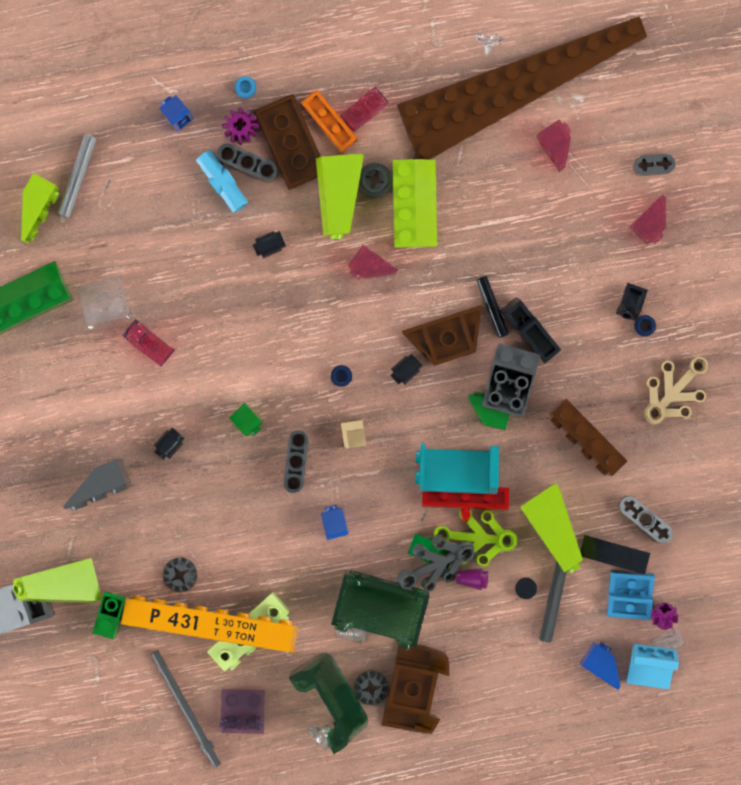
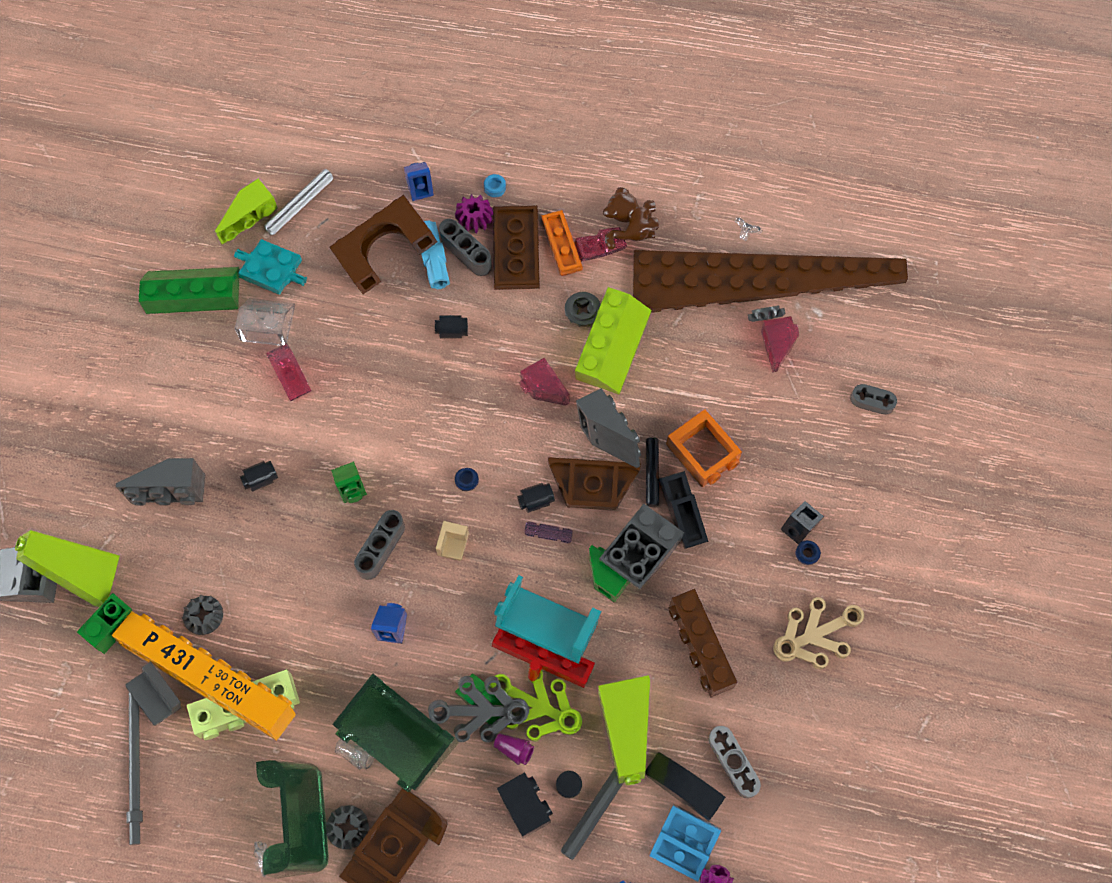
camera: 20 degrees right, 20 degrees down
(83, 250) = (270, 267): none -> teal plate
(151, 208) = (395, 218): none -> reddish brown arch
(174, 653) = (153, 694): none -> dark grey panel
(242, 711) = (193, 793): clear purple hinge -> none
(338, 190) = (542, 299): lime slope -> none
(373, 67) = (625, 209): none -> reddish brown animal
(428, 393) = (548, 532): none -> clear purple axle
(443, 290) = (607, 427): none -> dark grey slope
(499, 619) = (524, 804): none -> black brick
(508, 259) = (688, 430): none -> orange window
(536, 123) = (766, 313): none -> dark grey gear
(651, 222) = (850, 450): clear pink slope -> none

